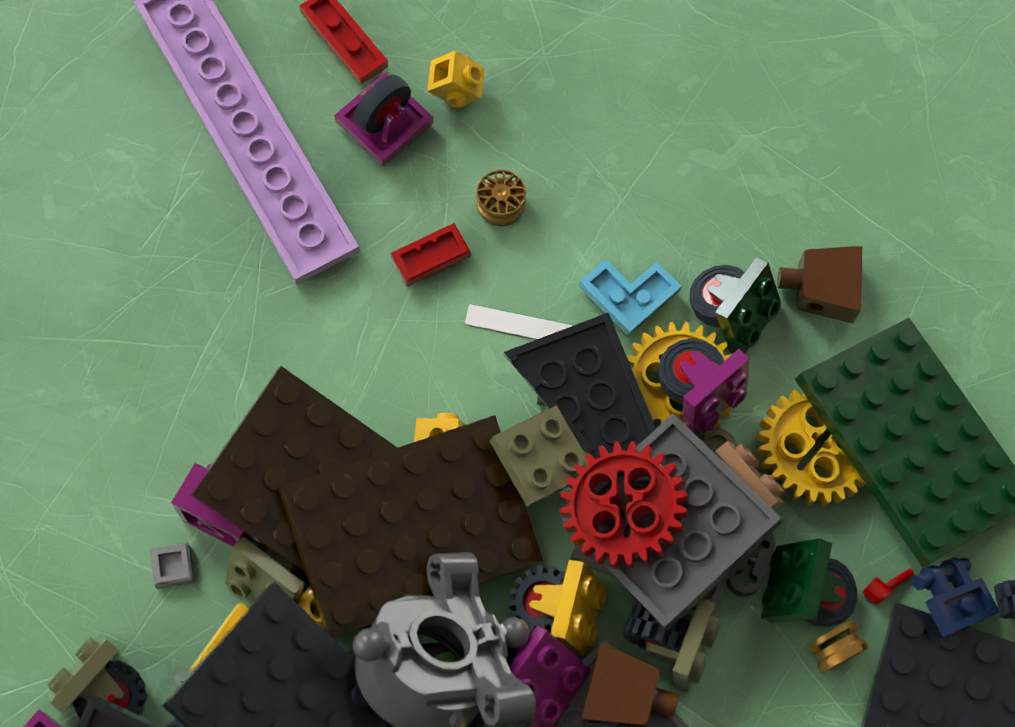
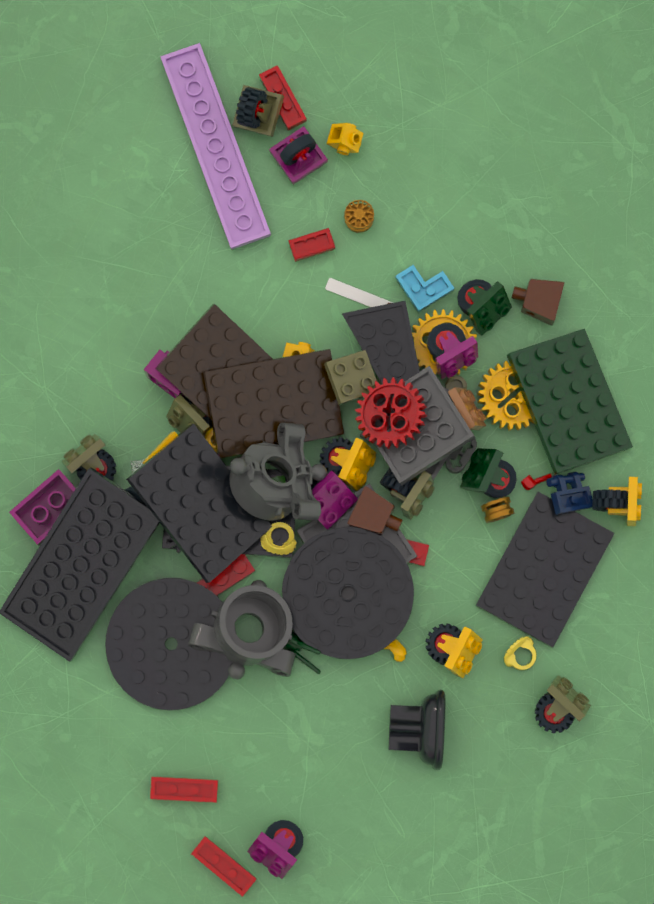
camera: 15 degrees right, 10 degrees up
(172, 565) = (138, 401): light grey tile -> none
(306, 57) = (258, 110): none -> plate

